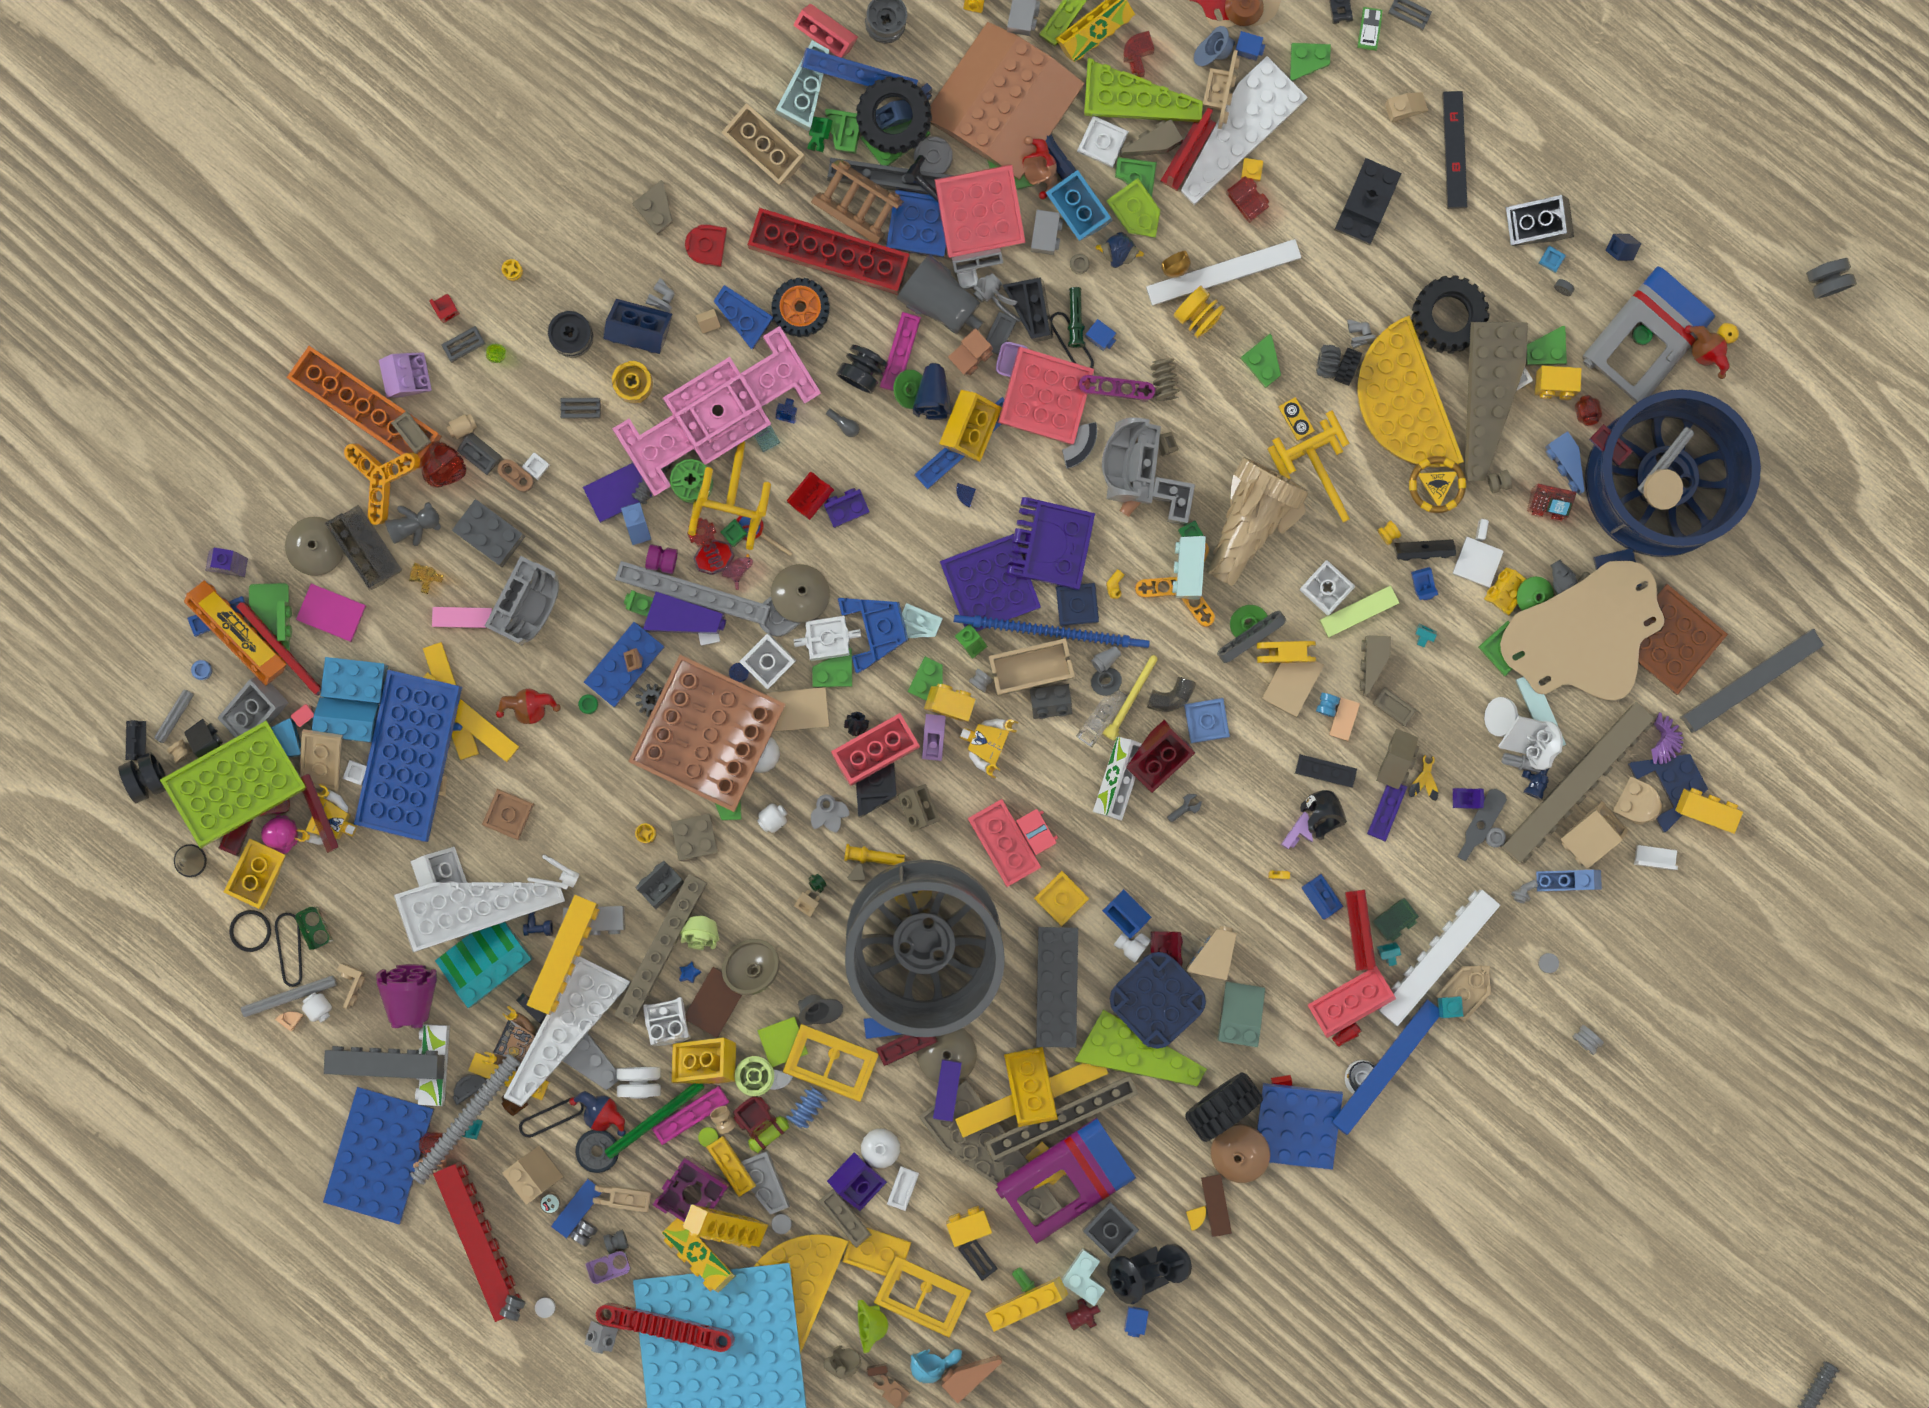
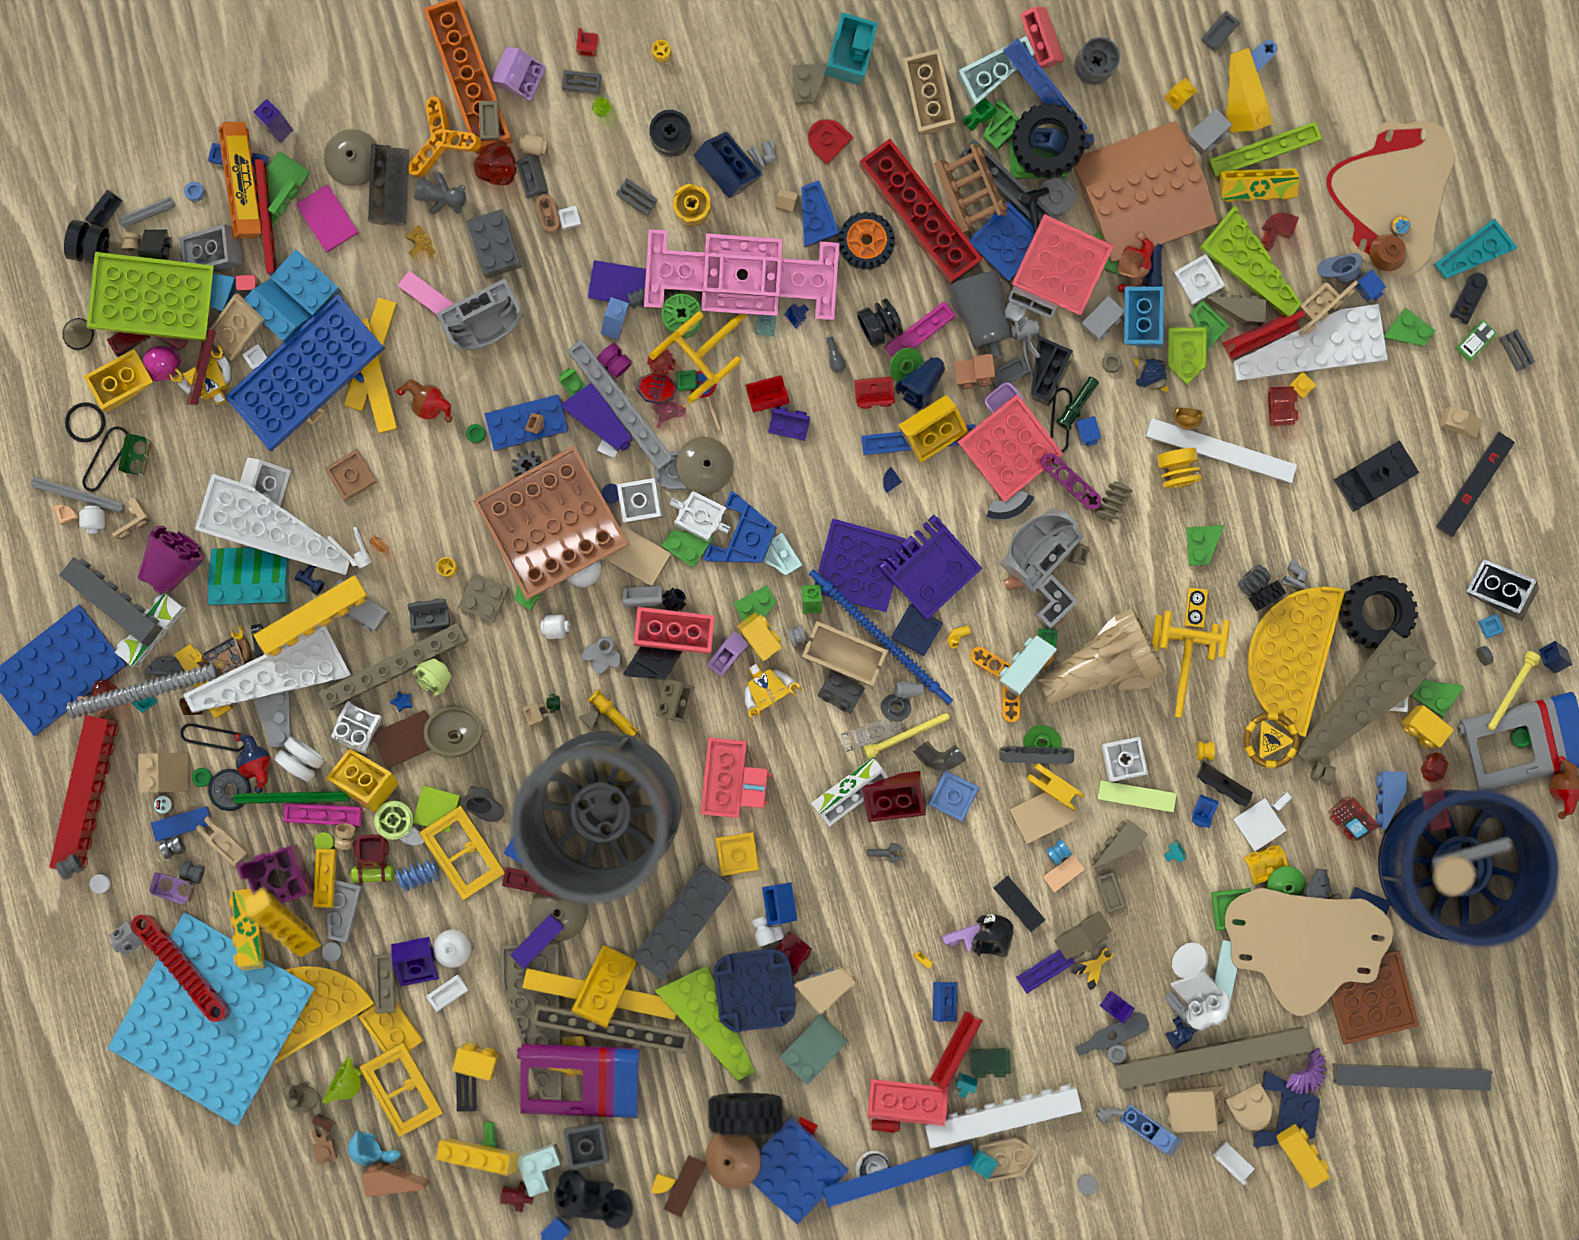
camera: 30 degrees right, 0 degrees up
(566, 1157) = (201, 777): none -> green tile
(573, 855) = (378, 543): none -> clear orange tile
(671, 155) = (850, 49): none -> teal piece
(828, 740) = (642, 596): none -> light grey tile
(899, 430) = (874, 392): none -> red bracket
(1605, 263) = (1530, 660): none -> light yellow piece

